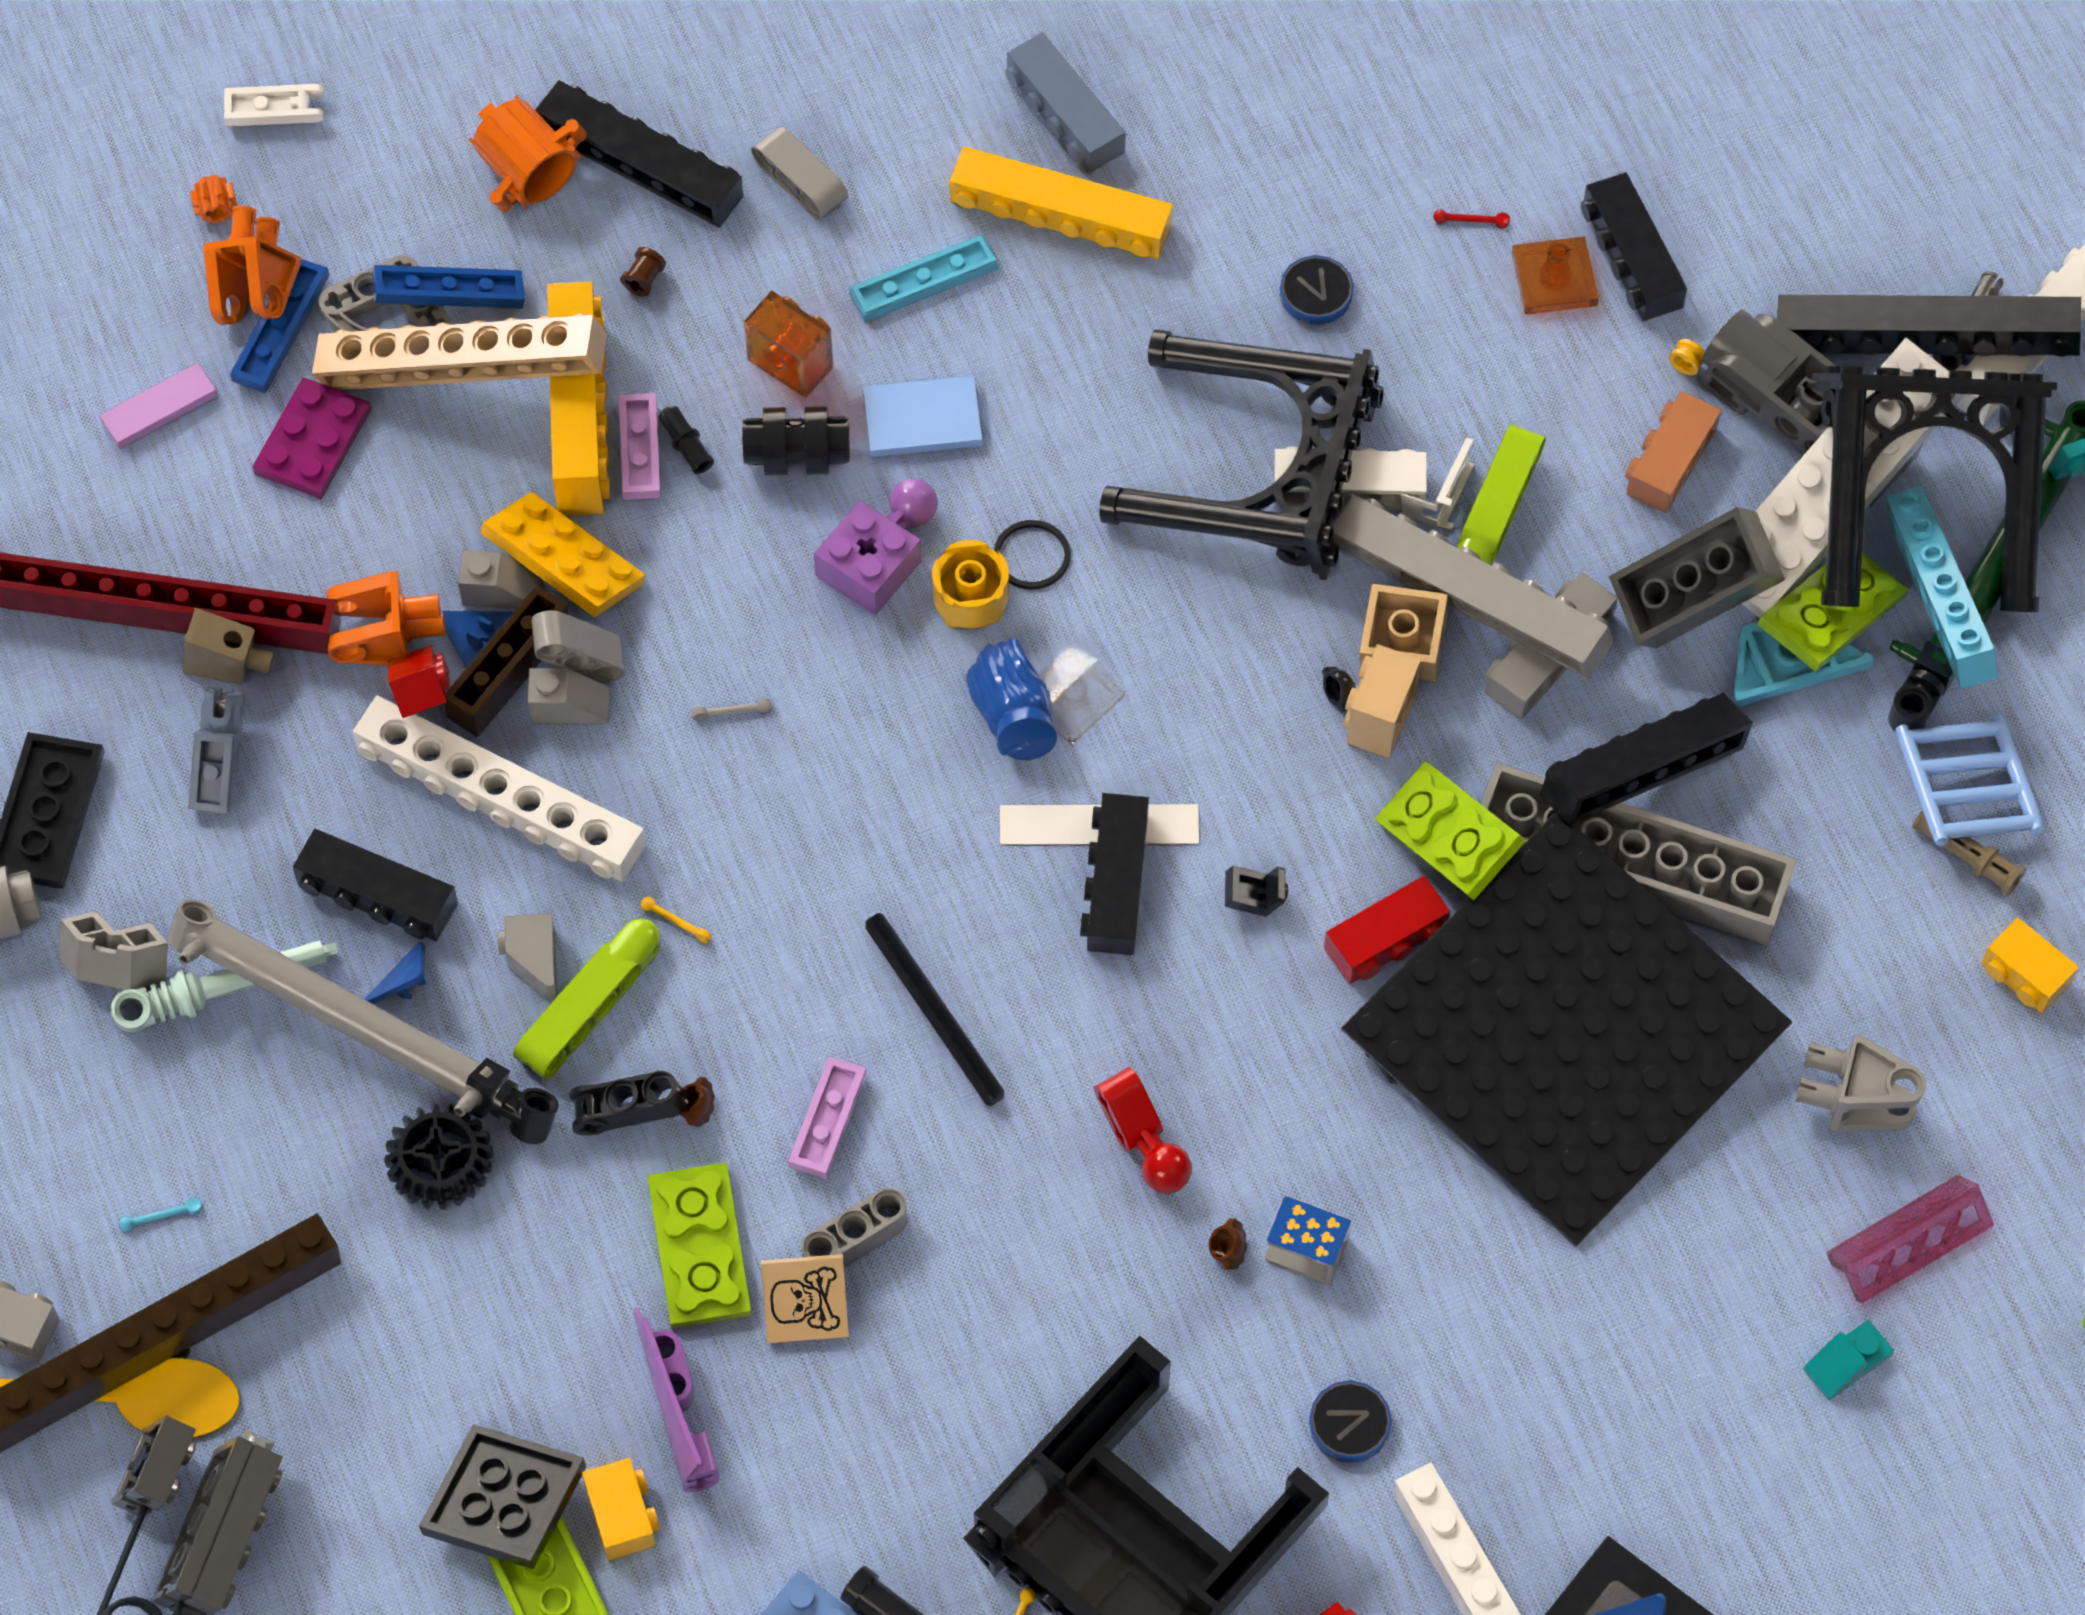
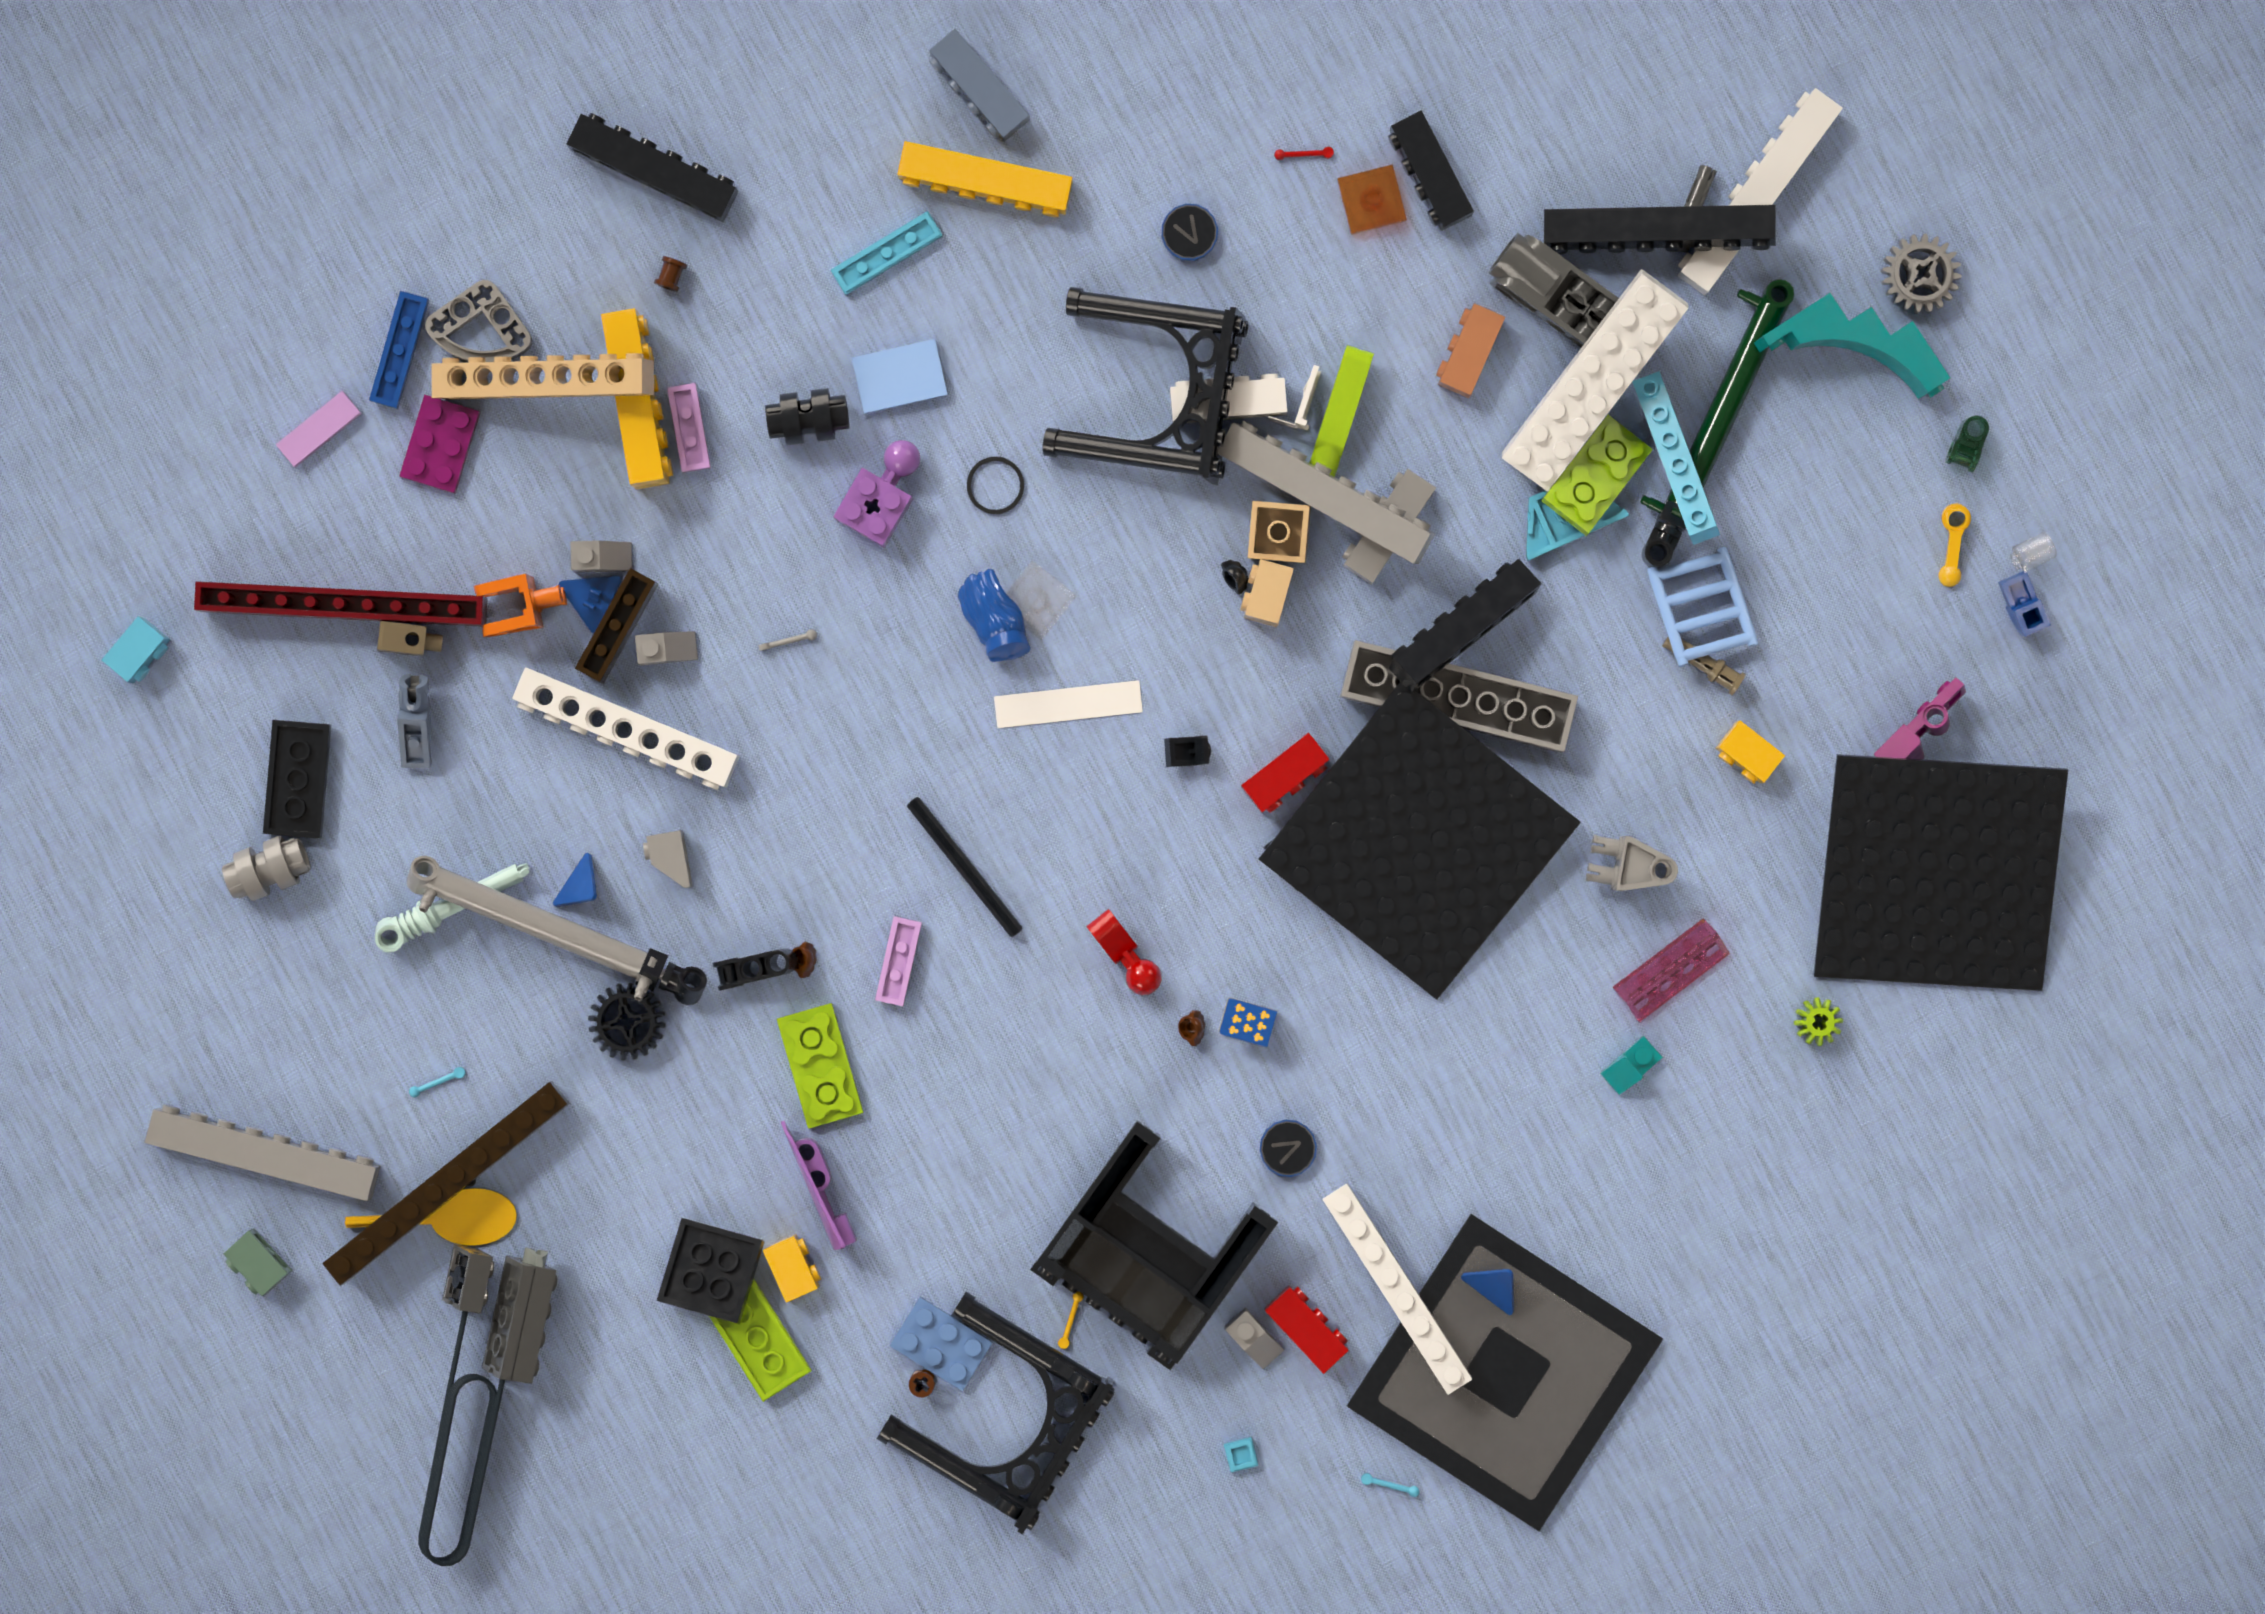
camera: 10 degrees left, 25 degrees up
(112, 958) = (372, 900): light grey brick -> none
(213, 199) = (329, 245): orange gear -> none
(248, 268) = (370, 313): orange piece -> none
(272, 105) = (358, 152): white hinge -> none
(375, 885) = (547, 815): black brick -> none
(418, 680) = (554, 659): red brick -> none
(448, 286) = (523, 308): blue plate -> none
(526, 152) = (564, 182): orange container -> none
(563, 554) = (644, 529): yellow plate -> none
(577, 646) = (668, 613): light grey beam -> none
(588, 998) = (716, 886): lime piece -> none
(648, 904) = (748, 805): yellow hinge -> none
(686, 439) = (722, 416): black axle -> none
(789, 343) = (791, 333): clear orange brick -> none
(799, 172) = (779, 171): light grey beam -> none
(804, 1298) = (899, 1103): tan tile -> none
(863, 1216) = (919, 1059): light grey beam -> none
(970, 585) = (938, 517): yellow brick -> none
(1117, 873) = (1086, 749): black brick -> none
(1450, 830) = (1324, 698): lime piece -> none
(1687, 357) = (1477, 265): yellow bush -> none
(1696, 577) = (1494, 475): dark grey brick -> none
(2020, 415) = (1603, 340): black arch -> none

